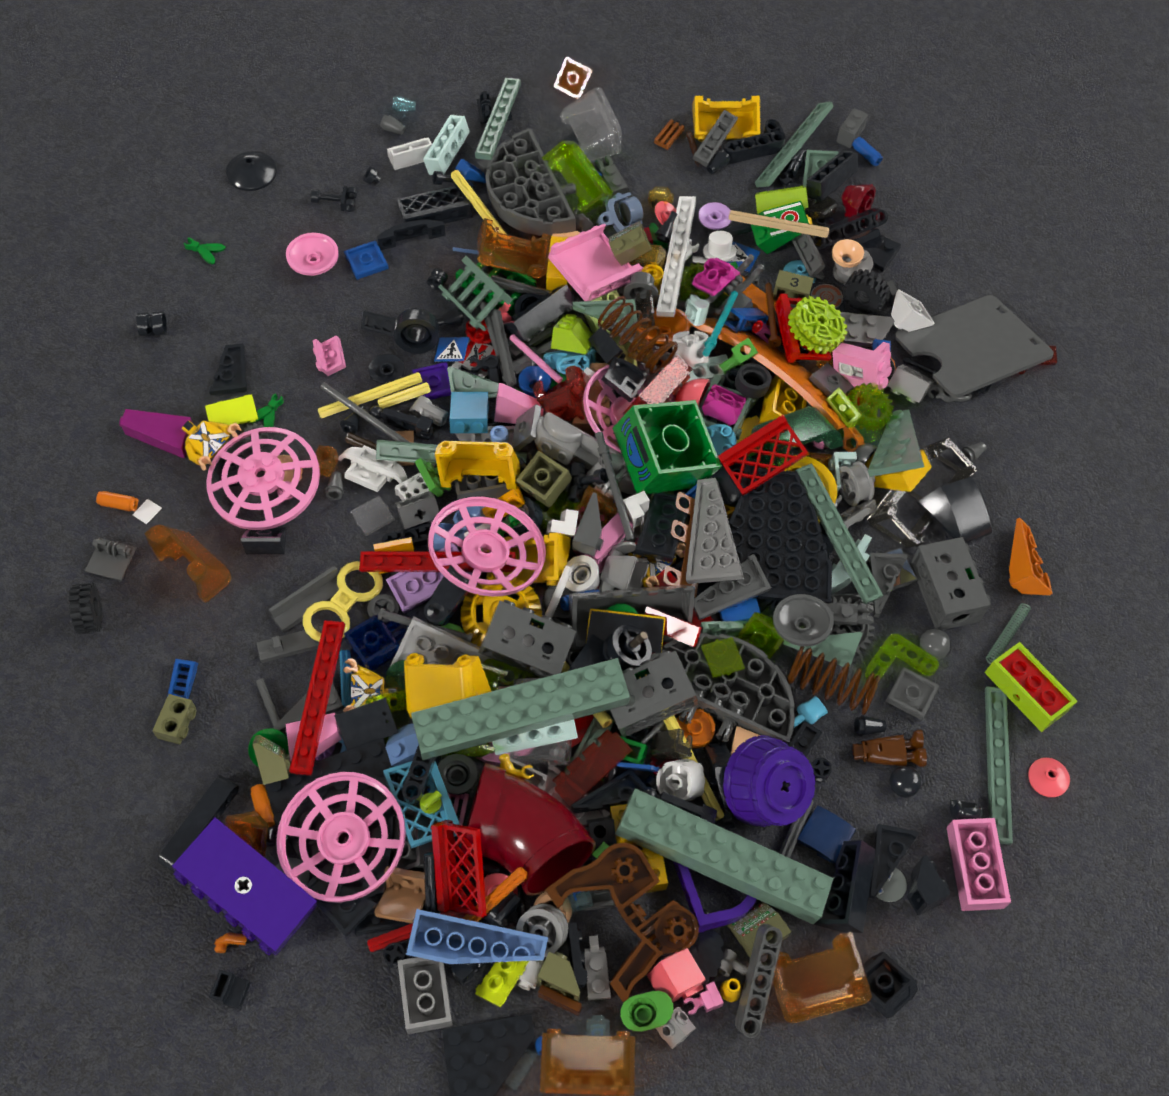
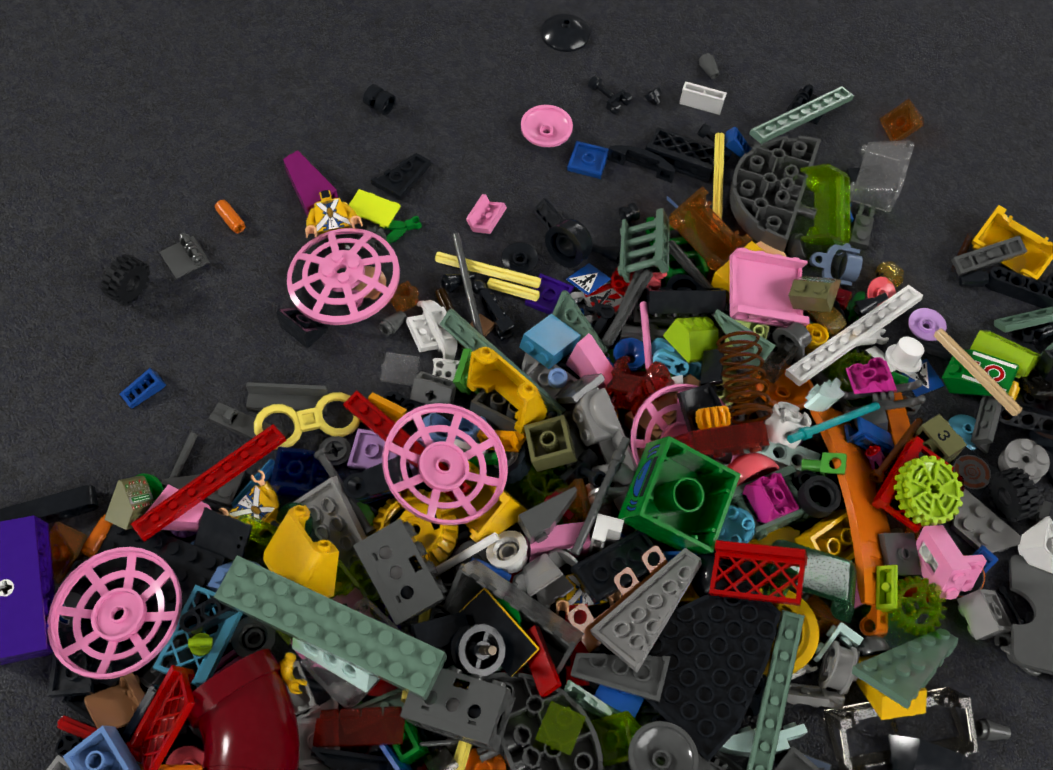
camera: 40 degrees right, 0 degrees up
(147, 511) = (244, 240): white sticker -> none
(169, 718) = (104, 410): olive brick -> none
(204, 249) = (473, 70): green piece -> none
(204, 568) = (236, 314): clear orange windscreen -> none
(403, 104) = (733, 54): clear light blue cone -> none
(425, 408) = (519, 313): light grey piece -> none
(446, 144) = (738, 109): light aqua brick -> none
(566, 525) = (528, 497): white piece -> none
(641, 377) = (713, 417): none -> light orange gear
(675, 126) = (949, 222): dark orange tile -> none
(850, 249) = (1029, 441): light nougat piece -> none

